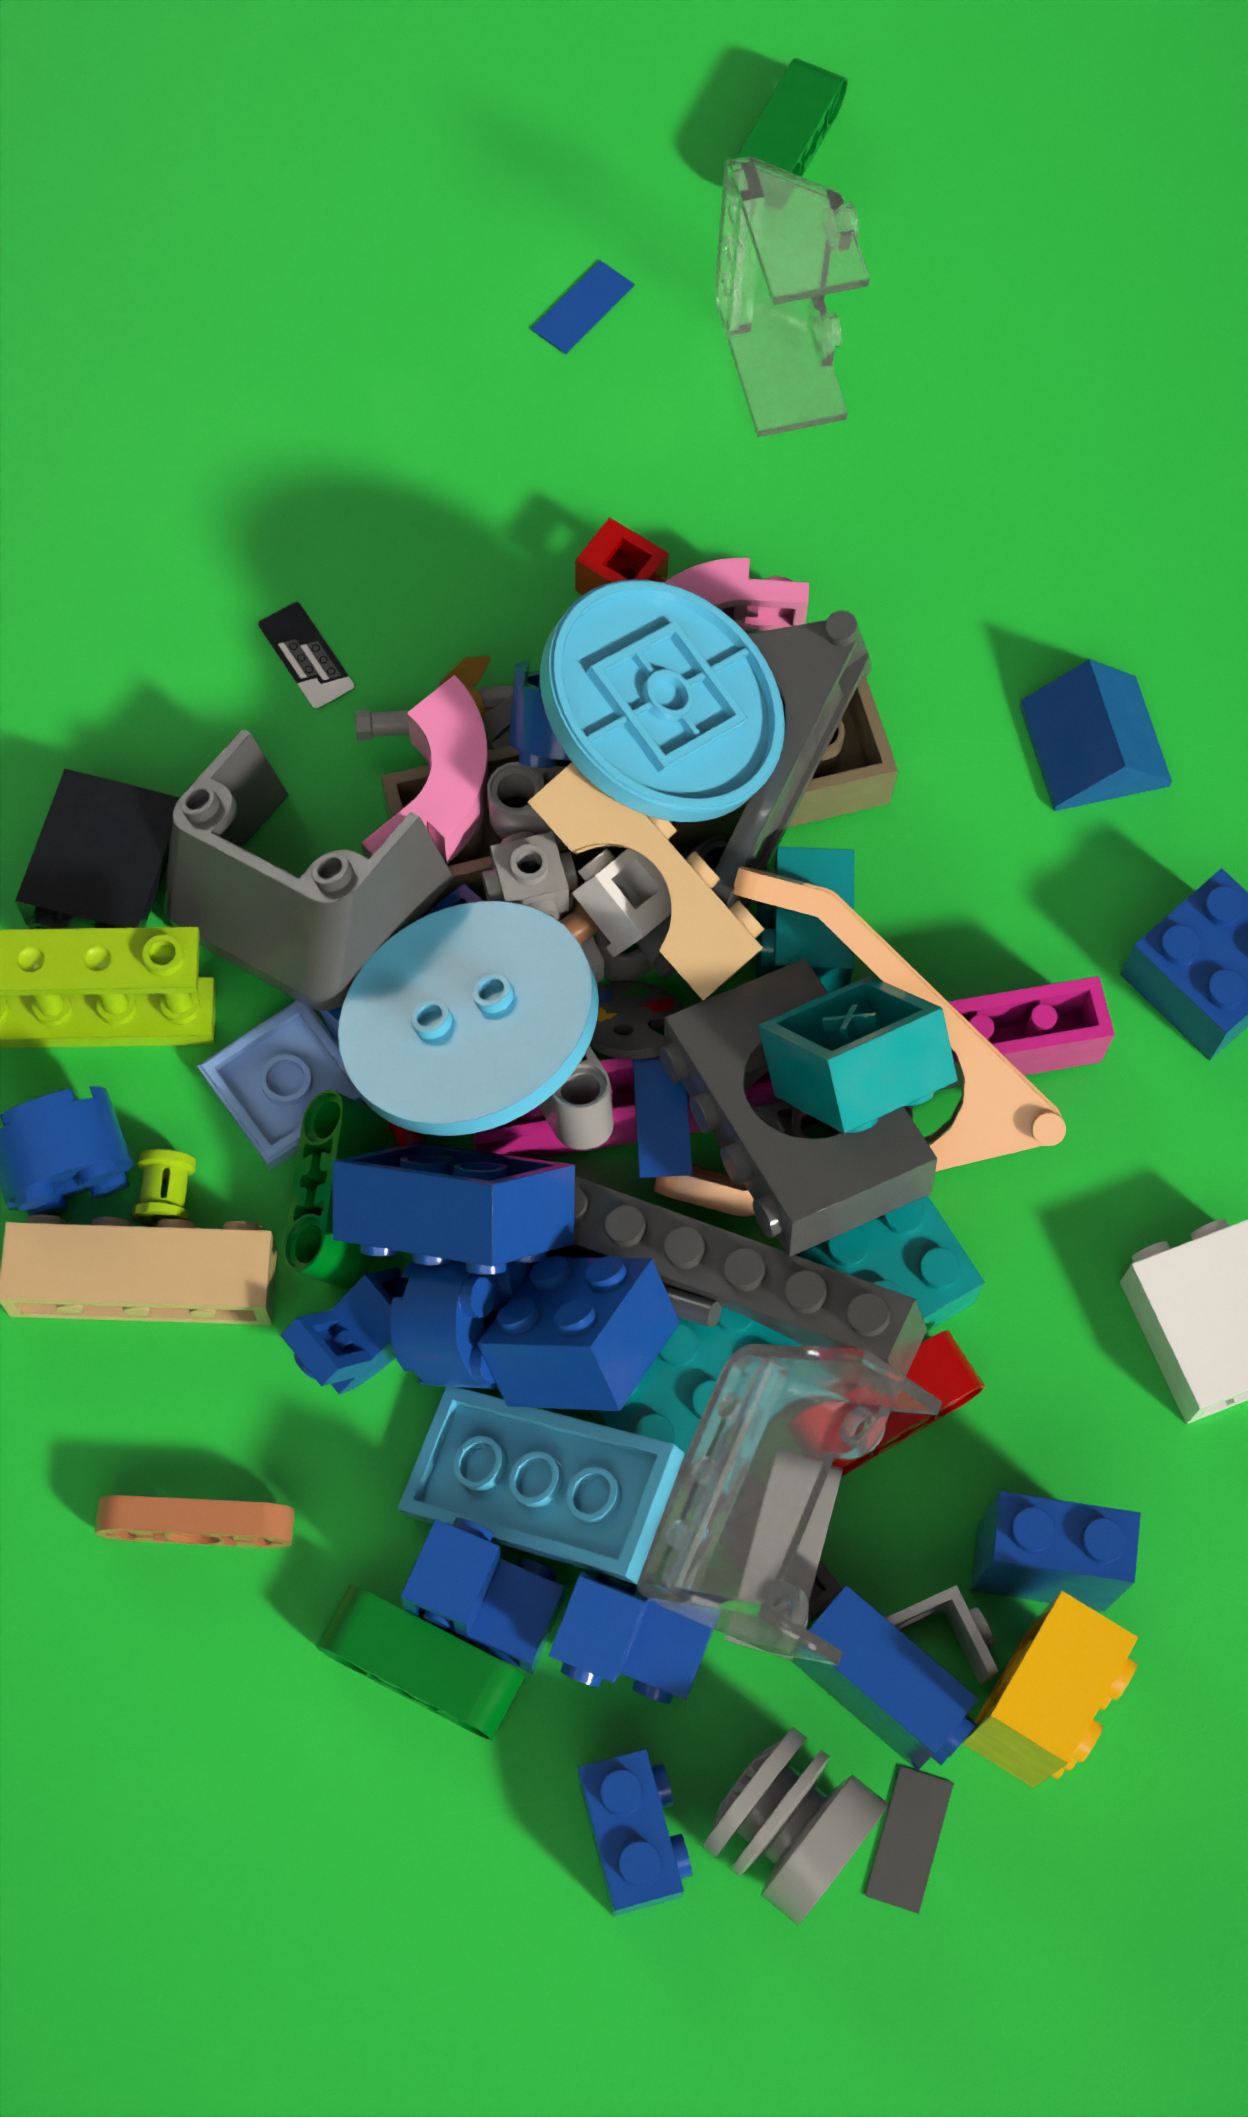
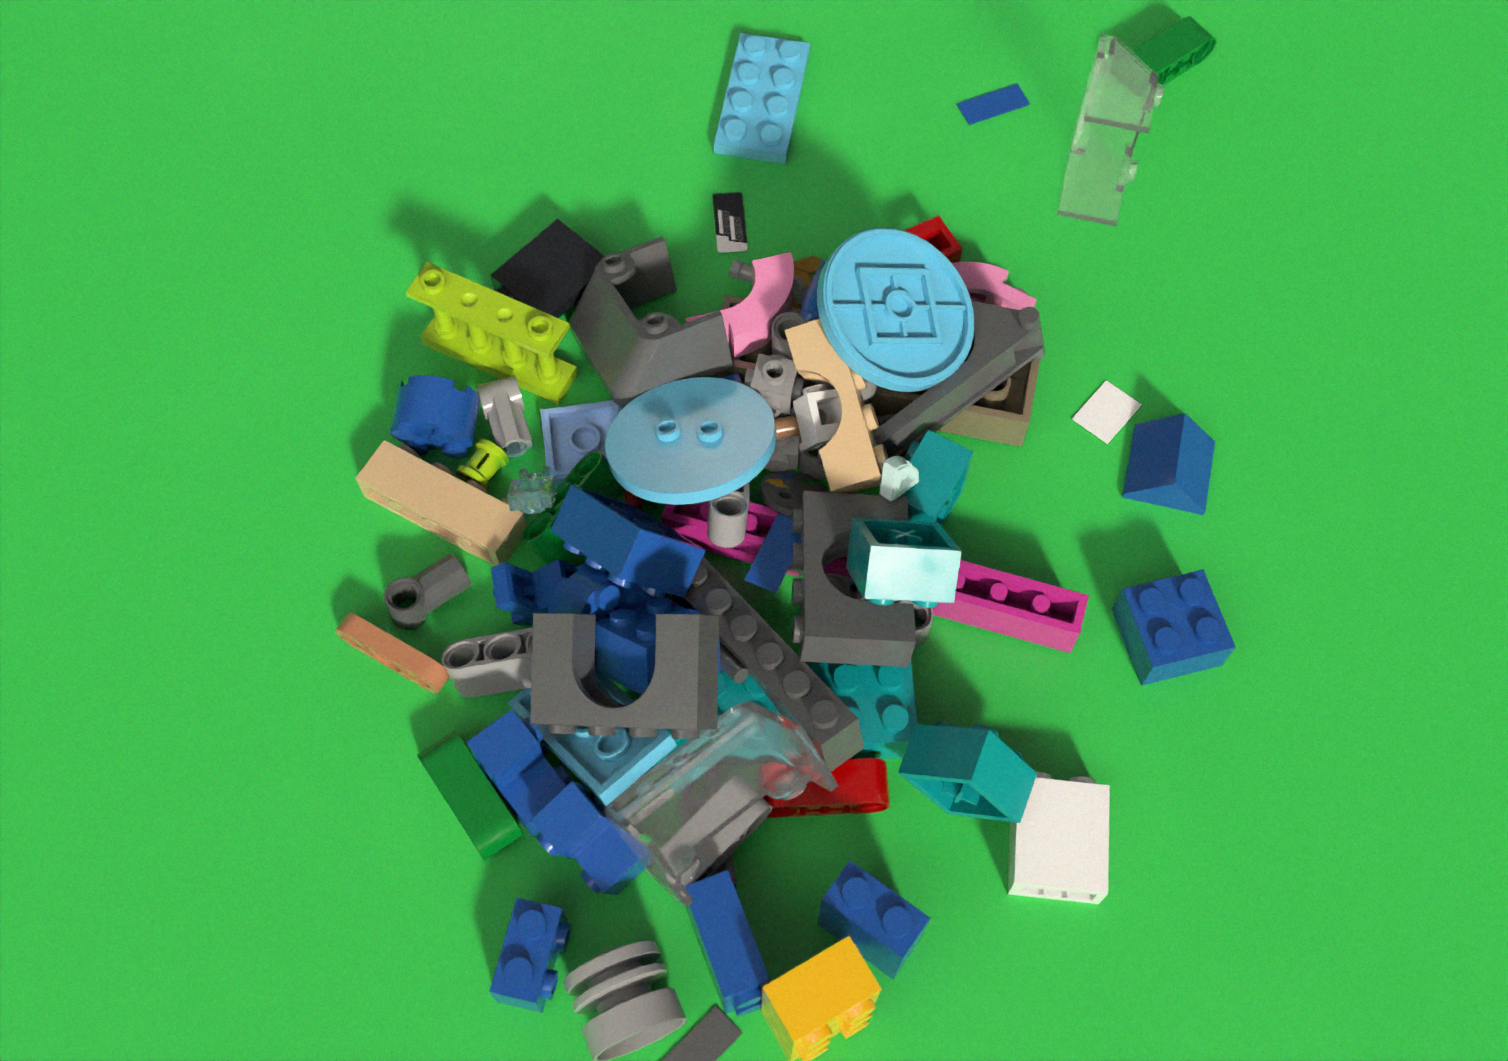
camera: 30 degrees right, 5 degrees down
(145, 1090) = (503, 408): none -> light grey piece
(194, 1406) = (428, 589): none -> dark grey piece
(249, 442) = (762, 98): none -> medium azure plate
(268, 1193) = (532, 491): none -> clear light blue plate
(341, 1458) = (490, 663): none -> light grey beam
(508, 1462) = (678, 697): none -> dark grey arch
(783, 939) = (897, 477): none -> light aqua tile
(968, 1625) = (785, 918): white bracket -> none
(973, 699) = (1106, 412): none -> white sticker
(997, 1106) = (982, 635): light nougat piece -> none
(1071, 1292) = (968, 771): none -> teal brick

